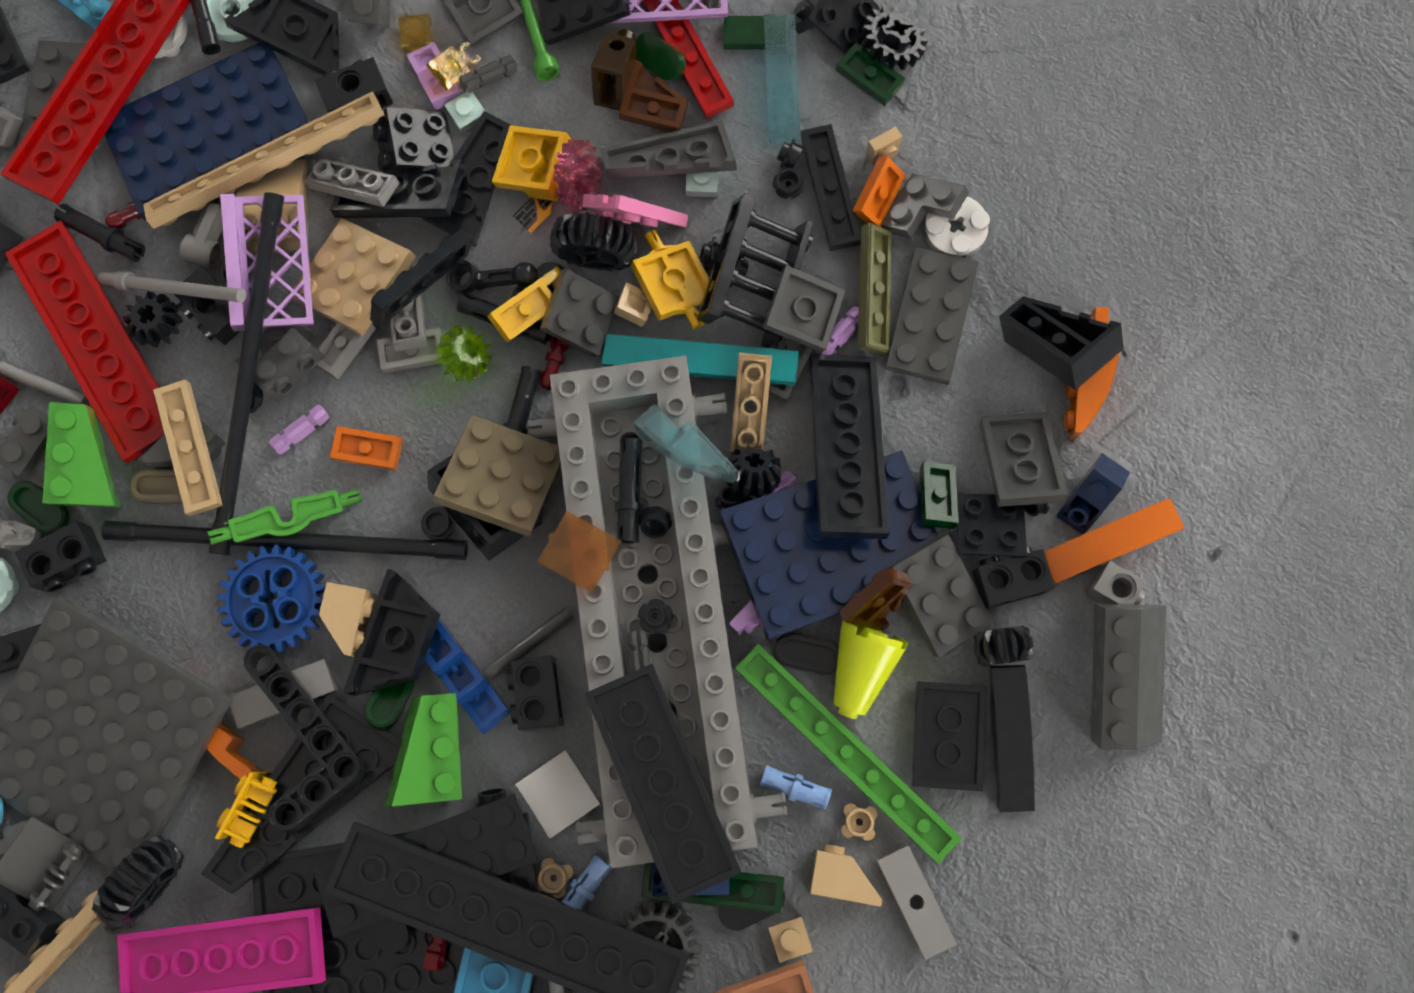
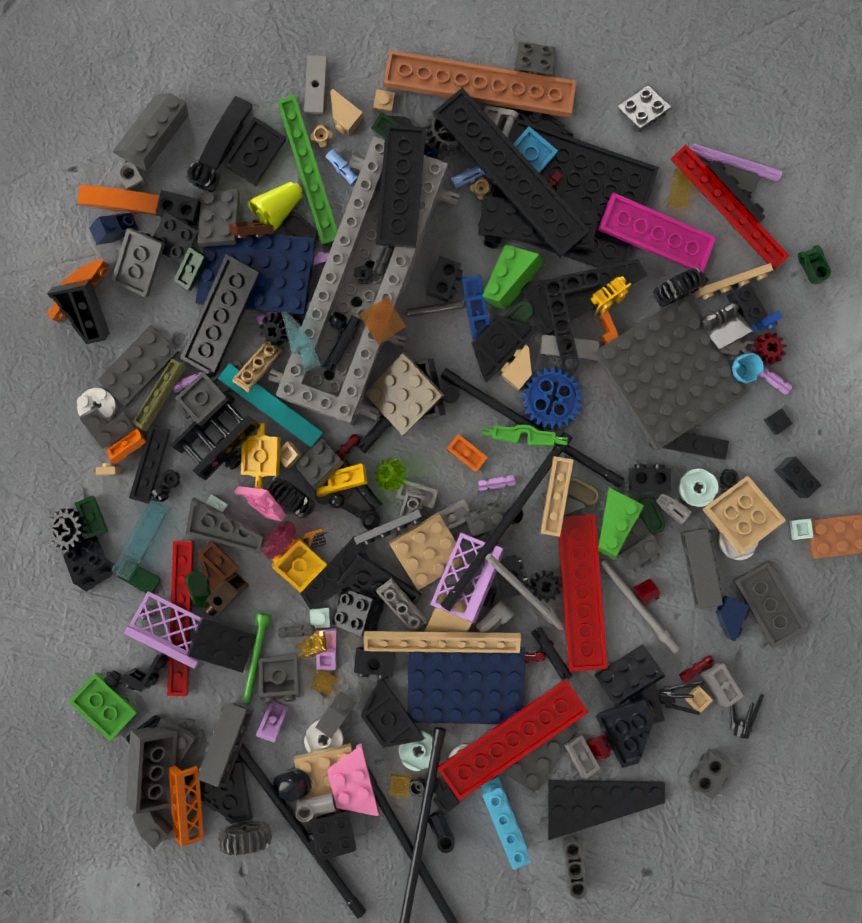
camera: 155 degrees left, 10 degrees up
(557, 794) = (459, 227): white sticker -> none

